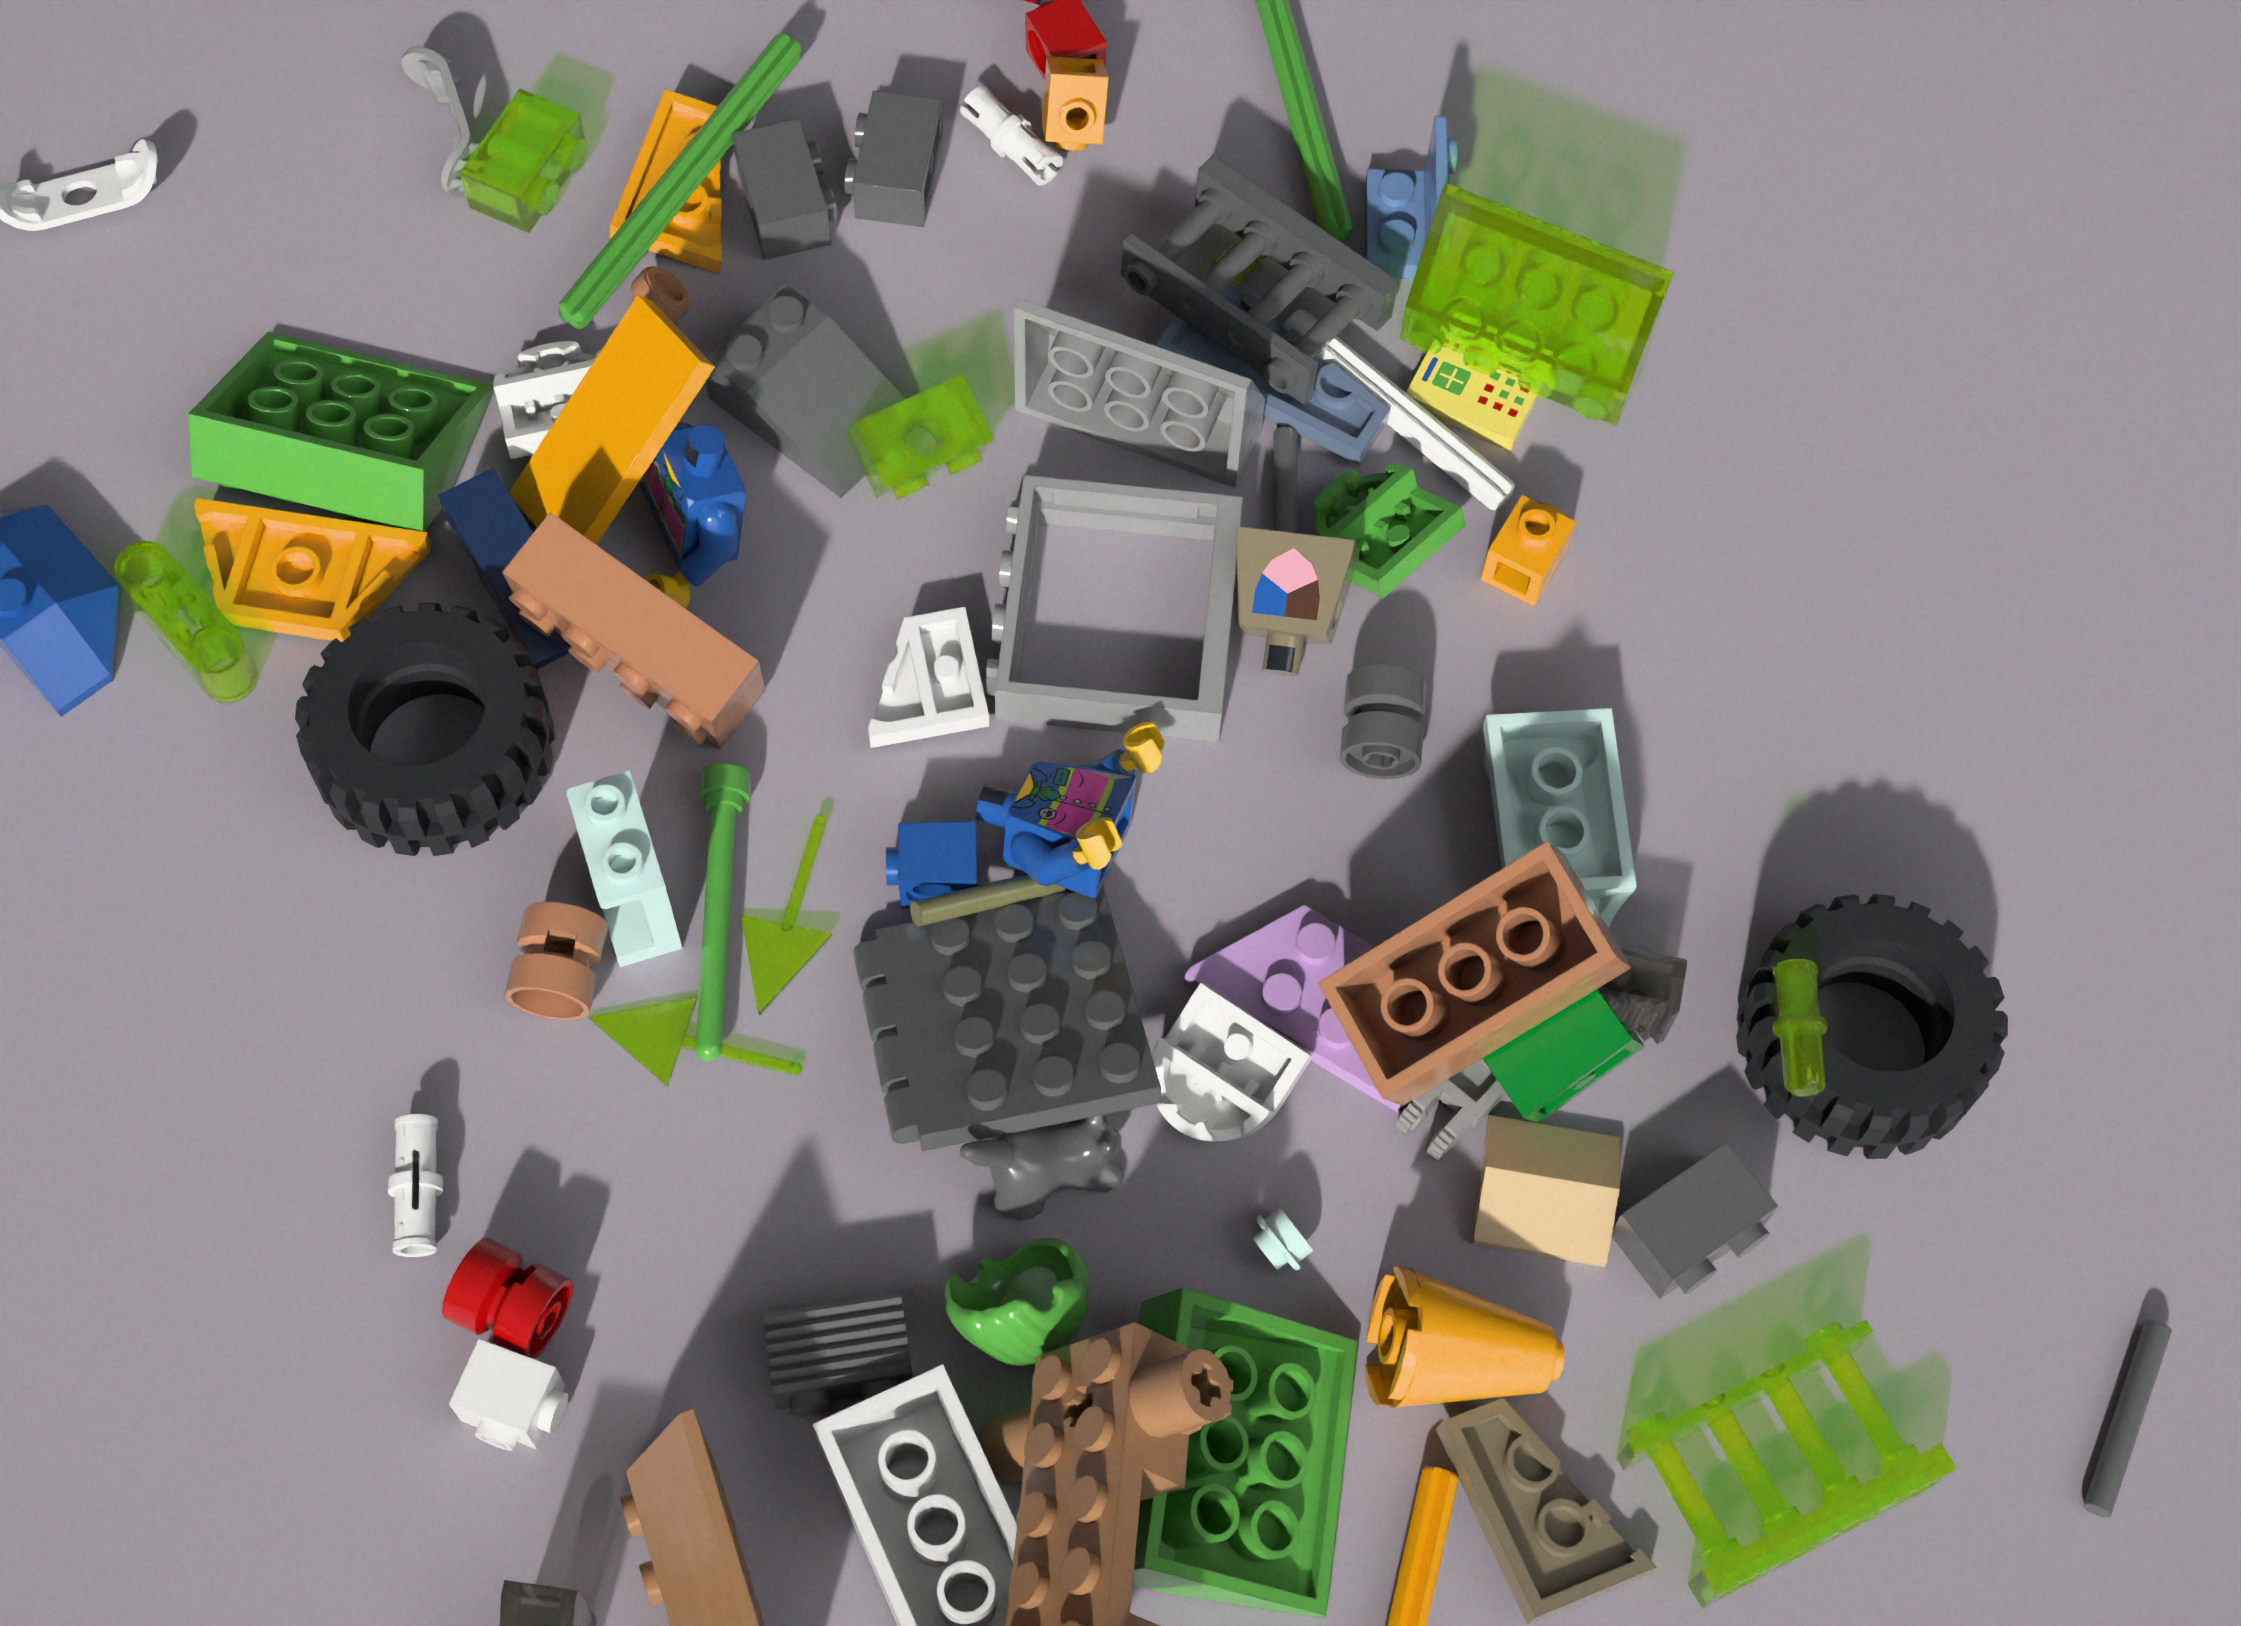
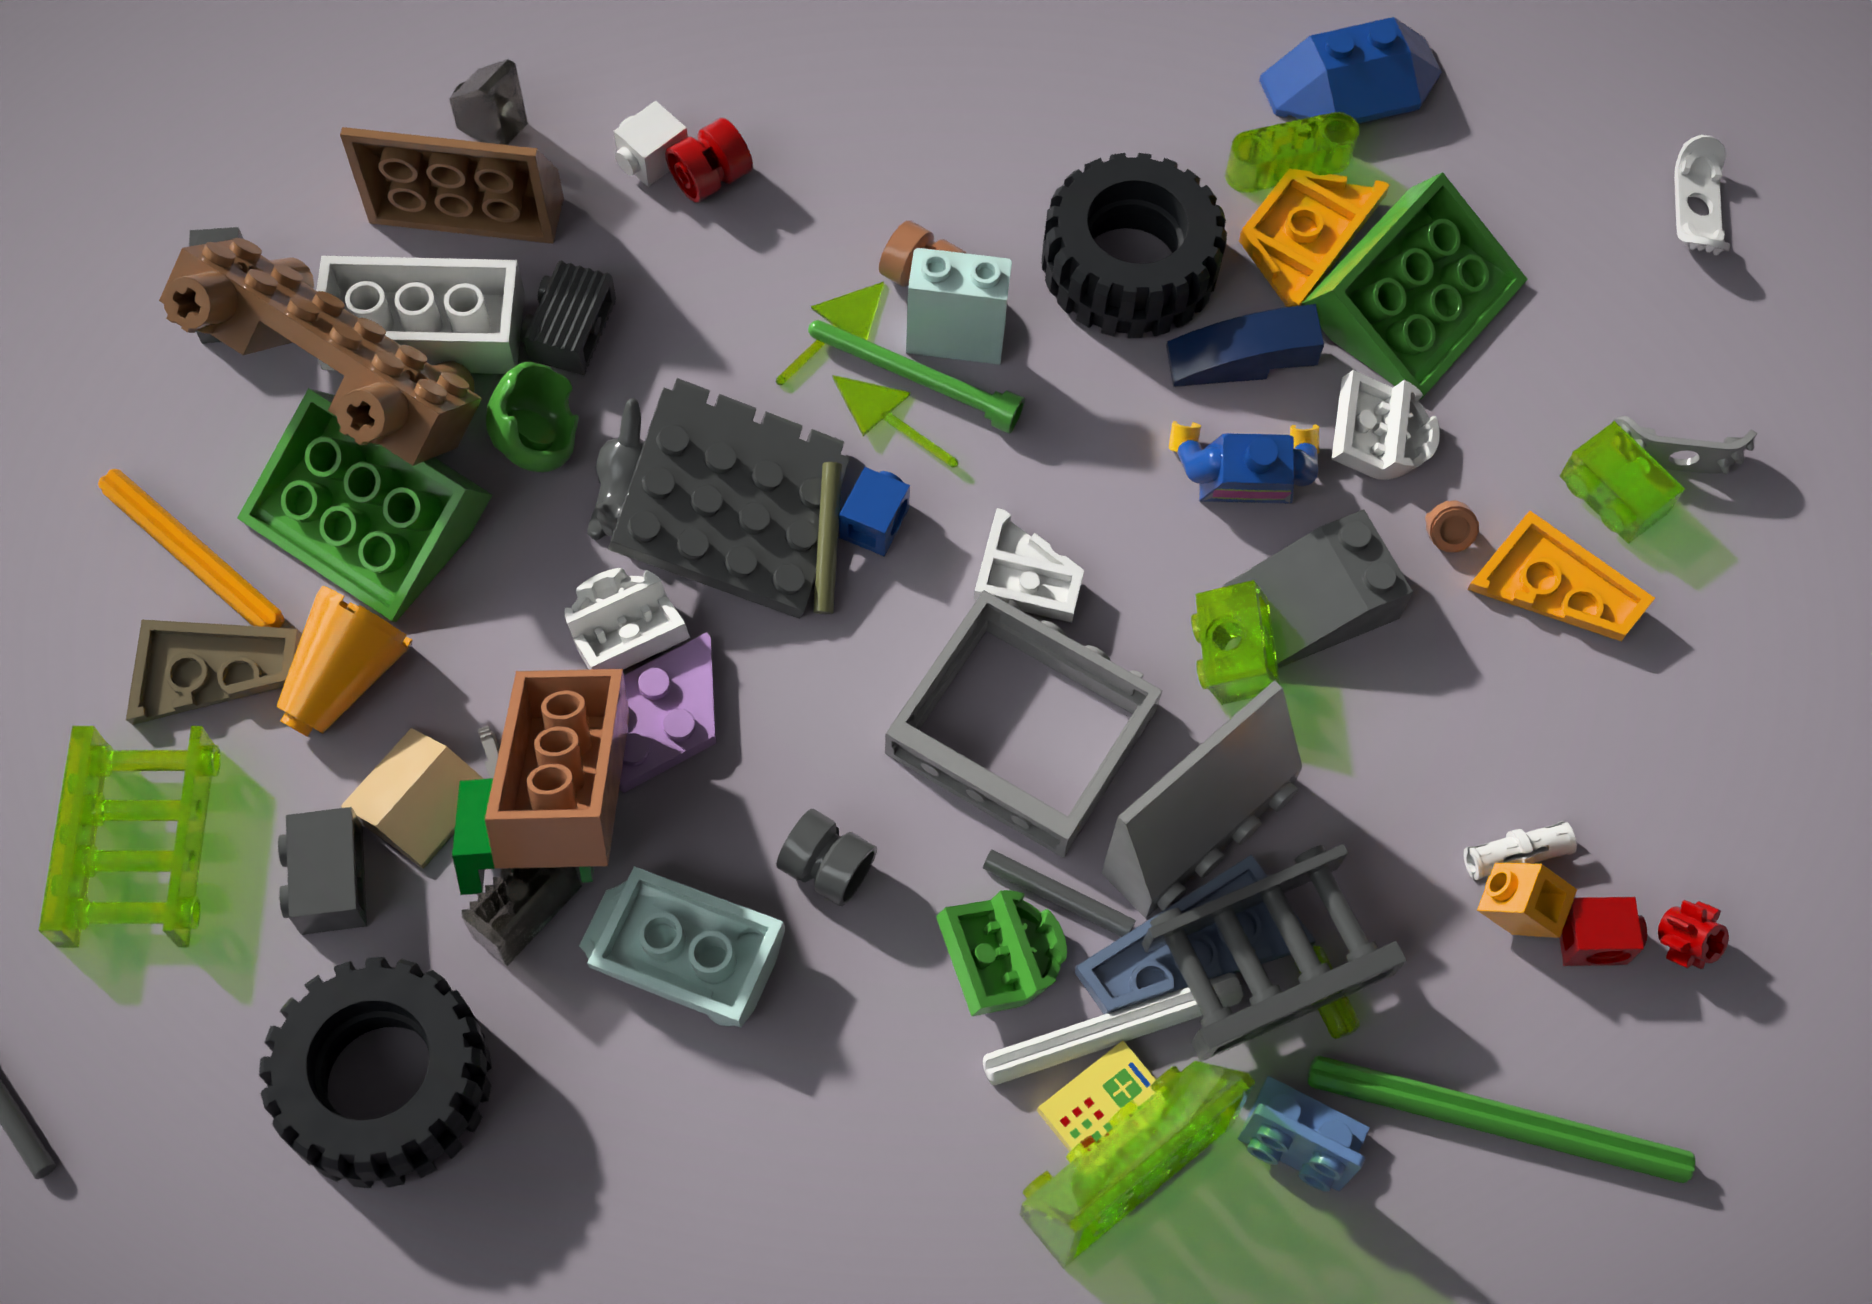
camera: 115 degrees right, 0 degrees up
(415, 1228) = (816, 146): white pin -> none
(613, 423) = (1318, 418): light orange tile -> none
(633, 631) = (1137, 372): nougat brick -> none
(679, 182) = (1558, 577): bright green axle -> none
(783, 188) = (1524, 649): dark grey brick -> none
(895, 158) = (1524, 746): dark grey brick -> none
(1072, 818) = (856, 597): torso -> none
(1281, 1240) = (483, 603): light aqua plate -> none
(1292, 590) = (972, 841): dark tan torso -> none
(1528, 550) = (925, 1055): light orange brick -> none
(1800, 1027) = (382, 972): clear neon green axle -> none

